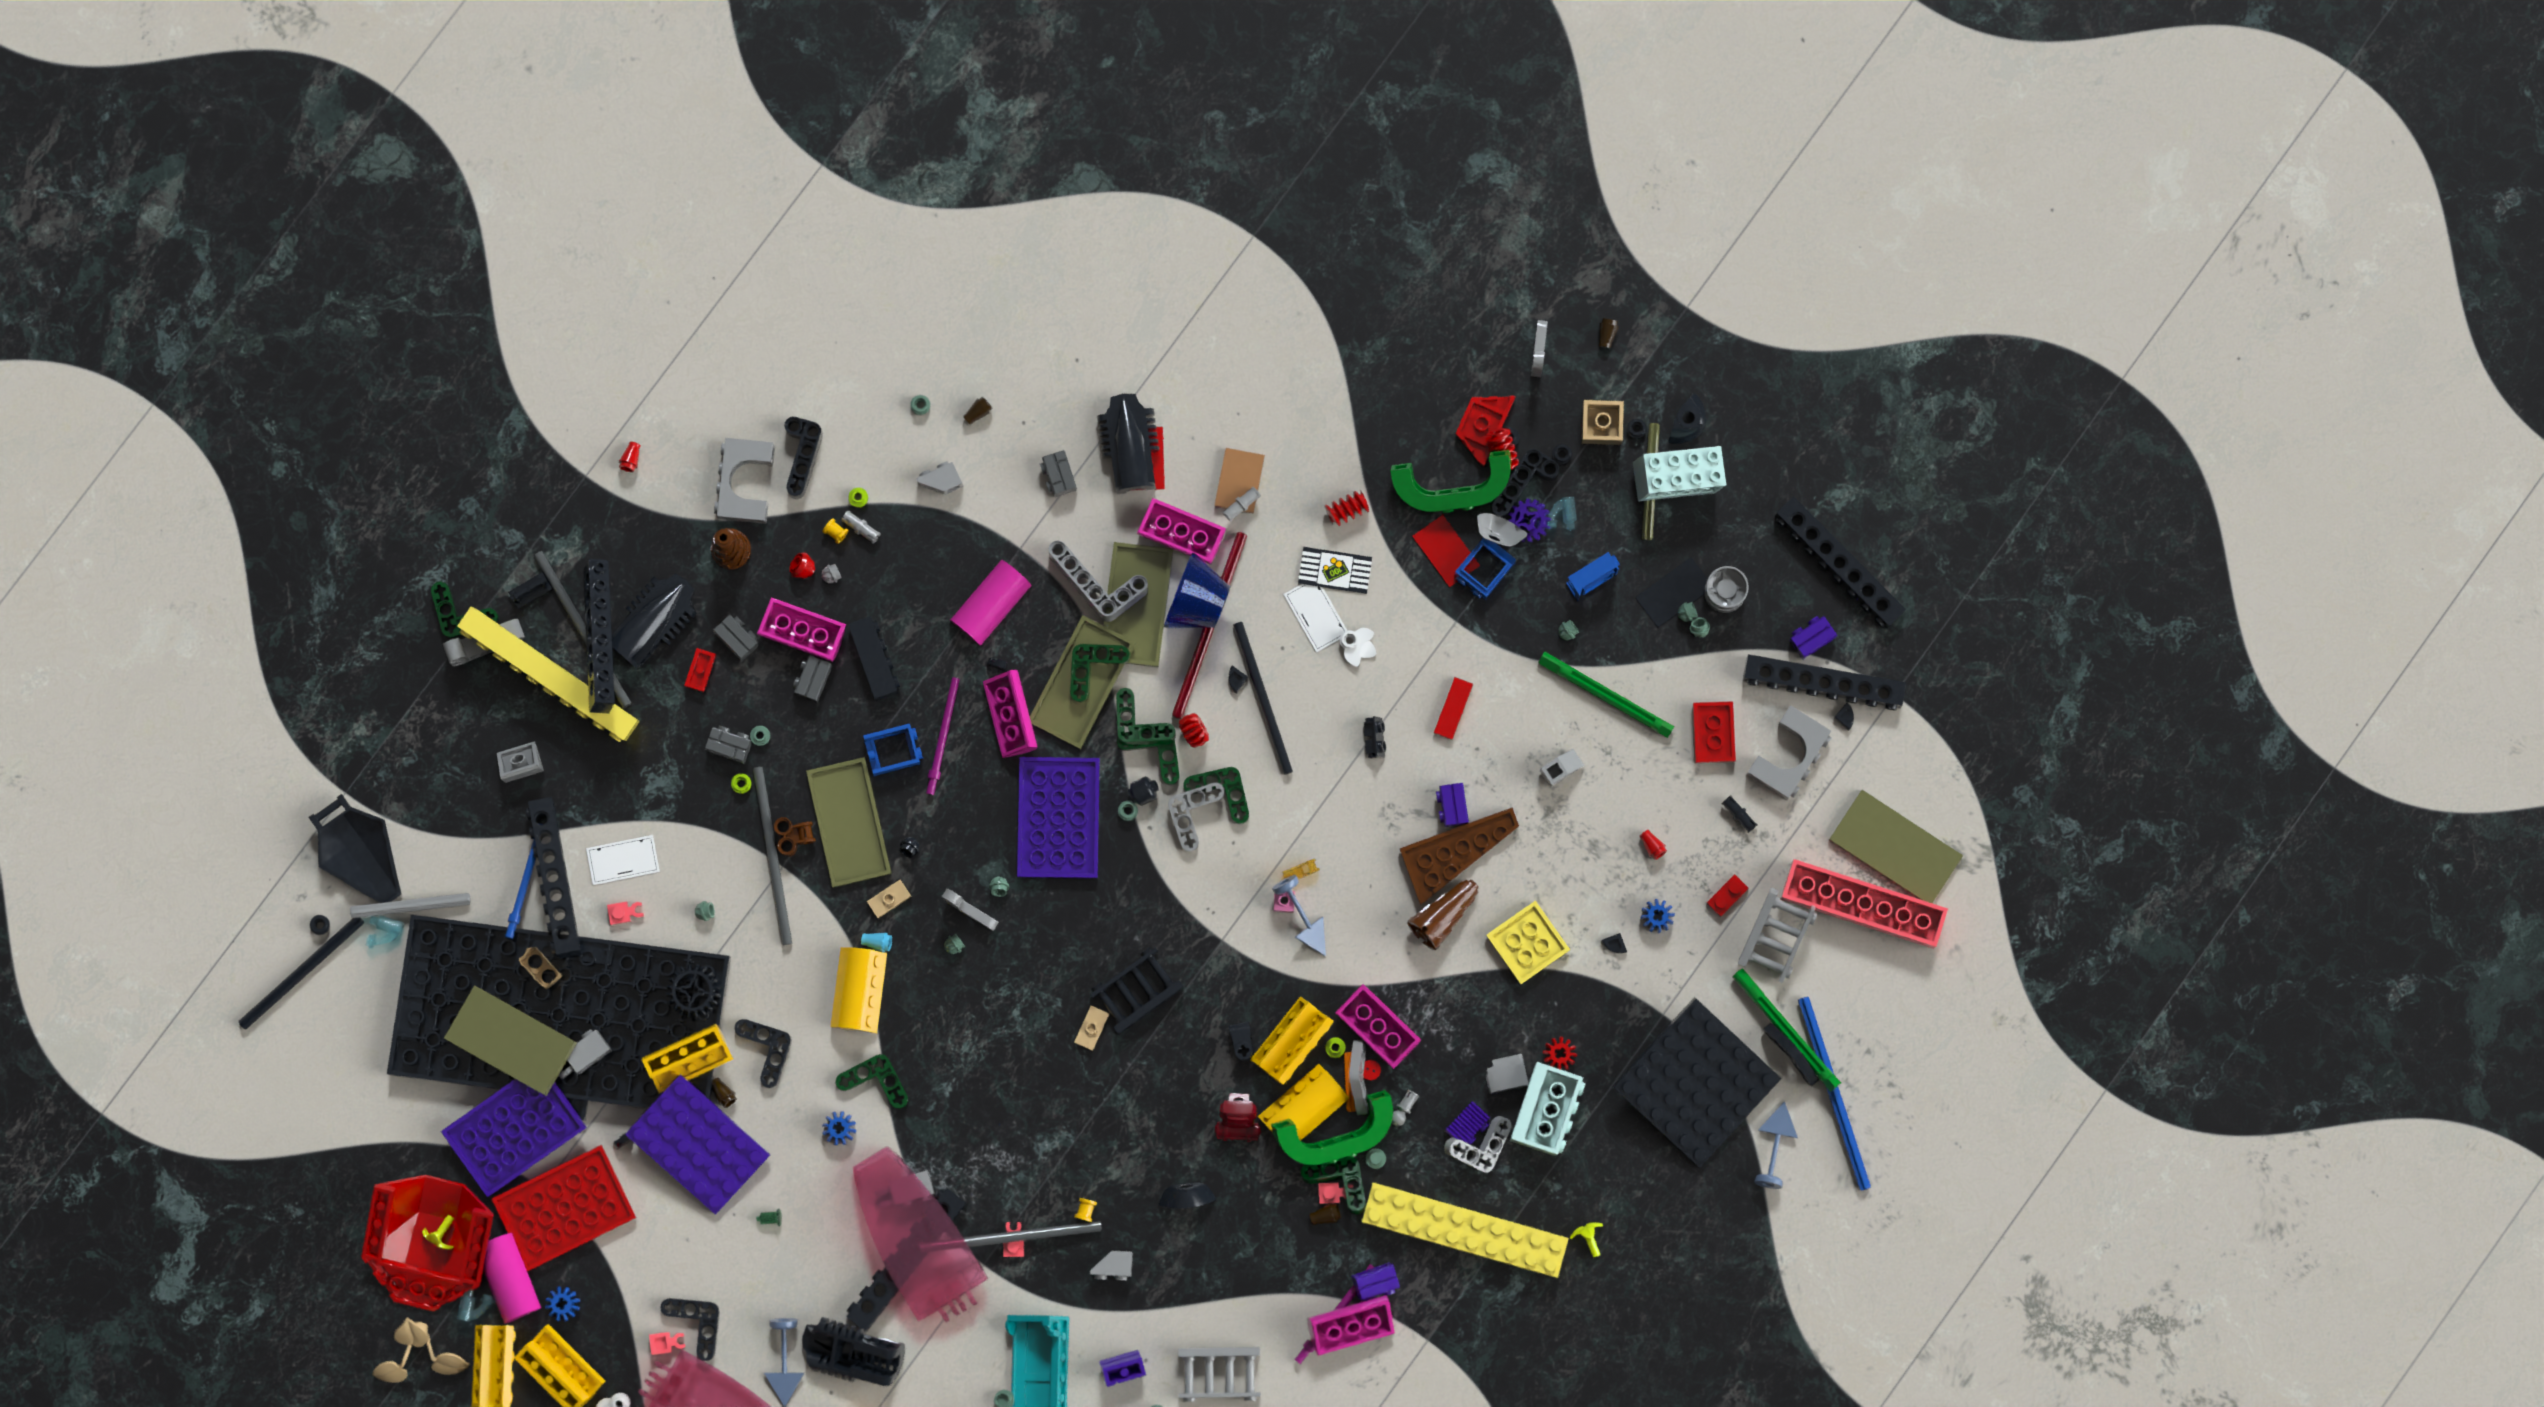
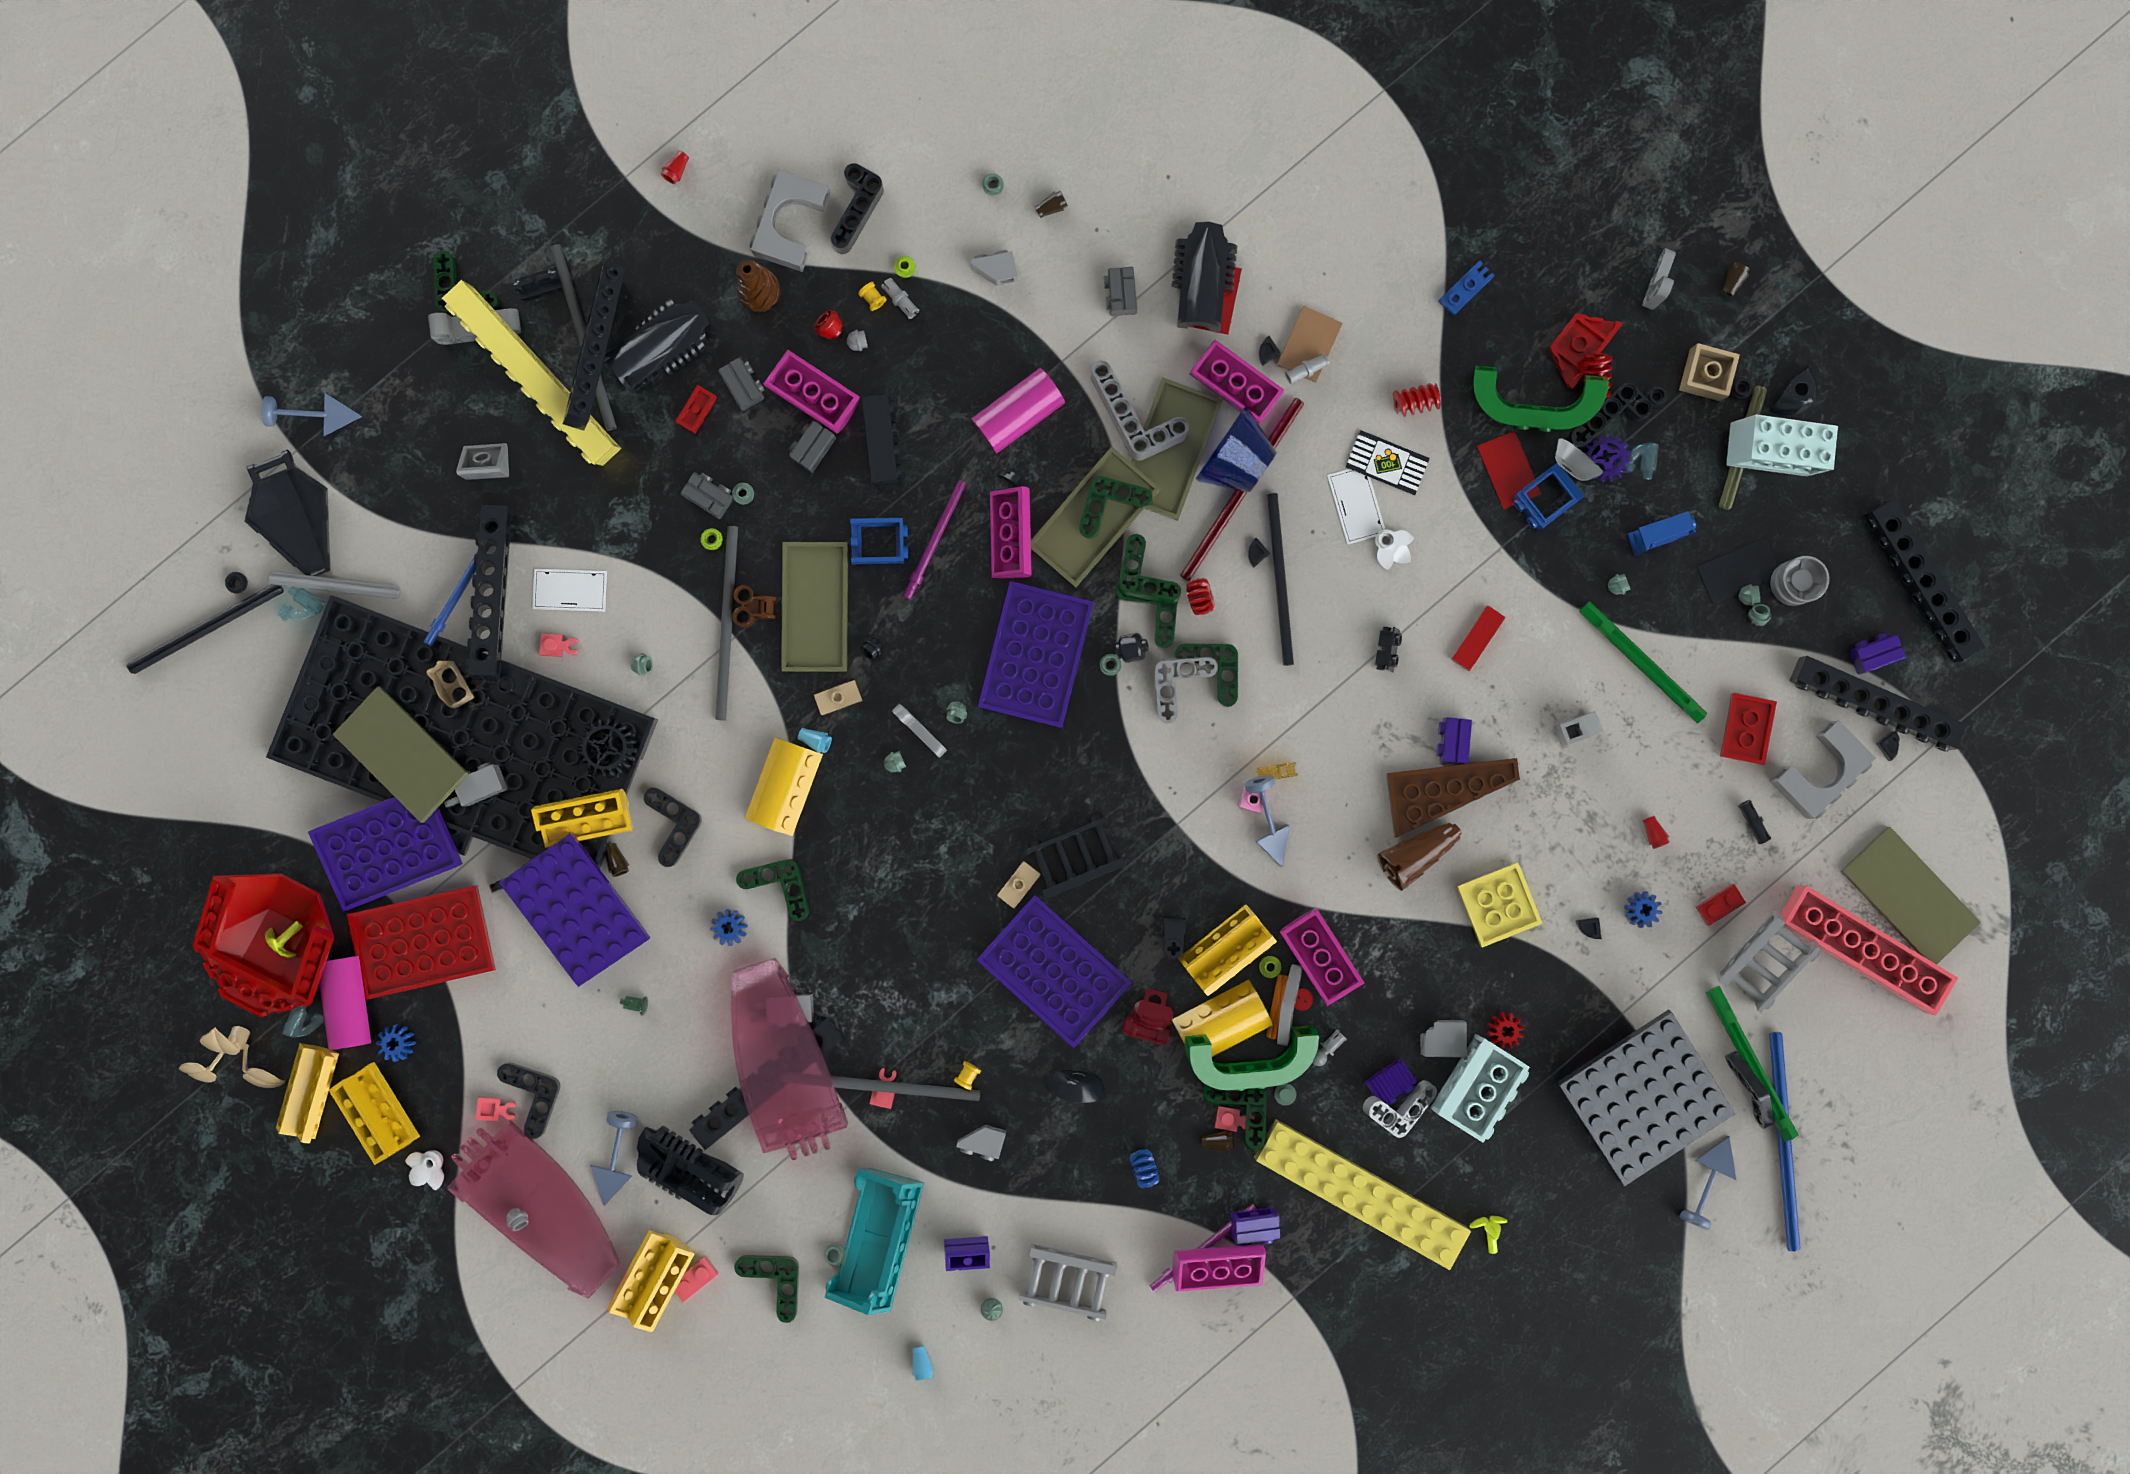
camera: 10 degrees right, 5 degrees up
(374, 754) = (335, 413): none -> sand blue piece
(1141, 1097) = (1054, 971): none -> dark purple plate
(1203, 495) = (1268, 351): none -> black tile
(1263, 1253) = (1144, 1168): none -> blue gear
(1368, 398) = (1465, 289): none -> blue hinge

